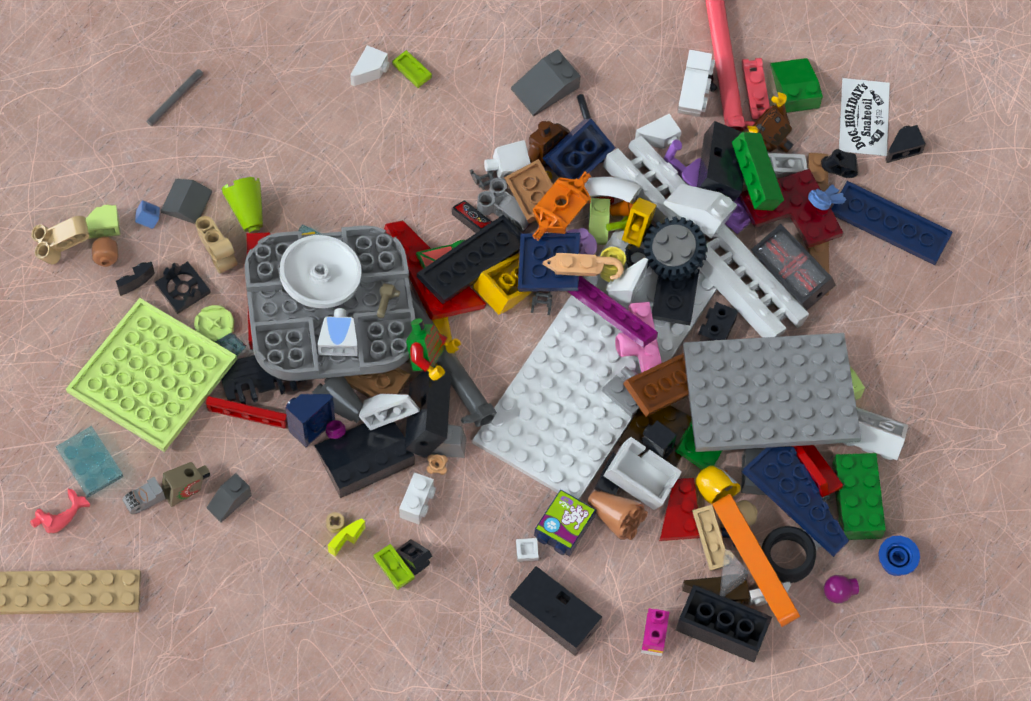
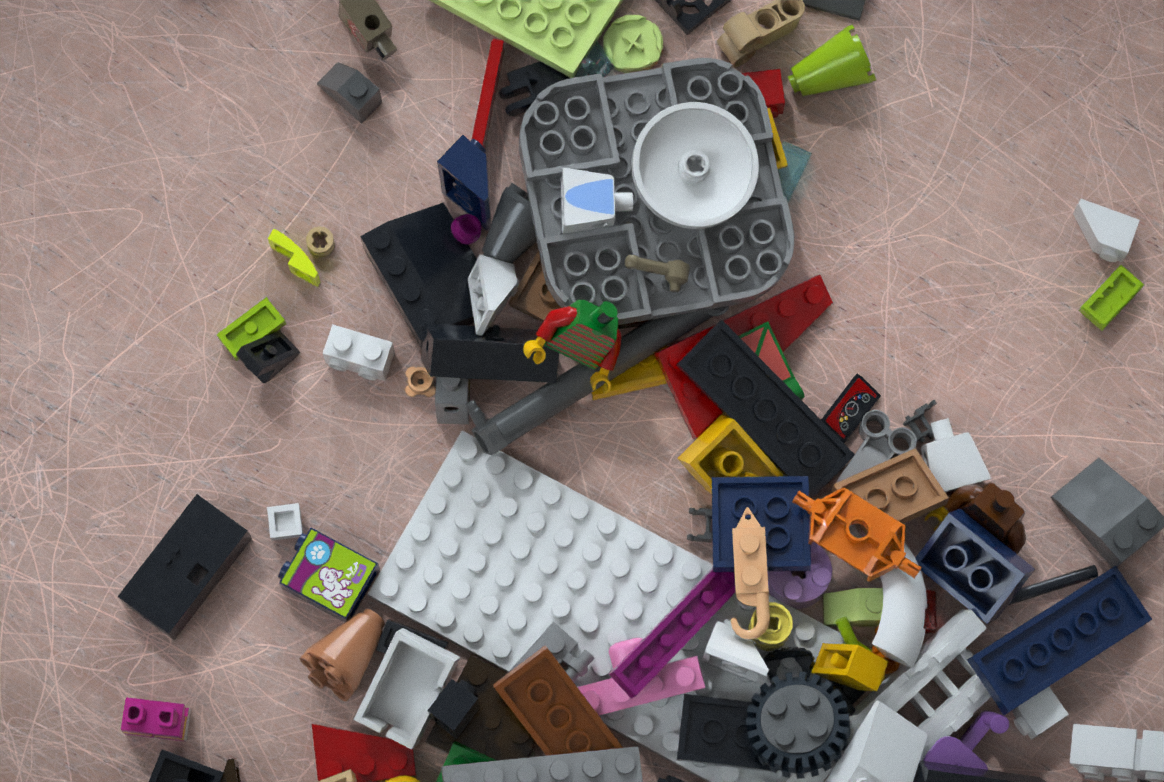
camera: 90 degrees right, 10 degrees up
(625, 112) = (1059, 640): none -> dark blue plate

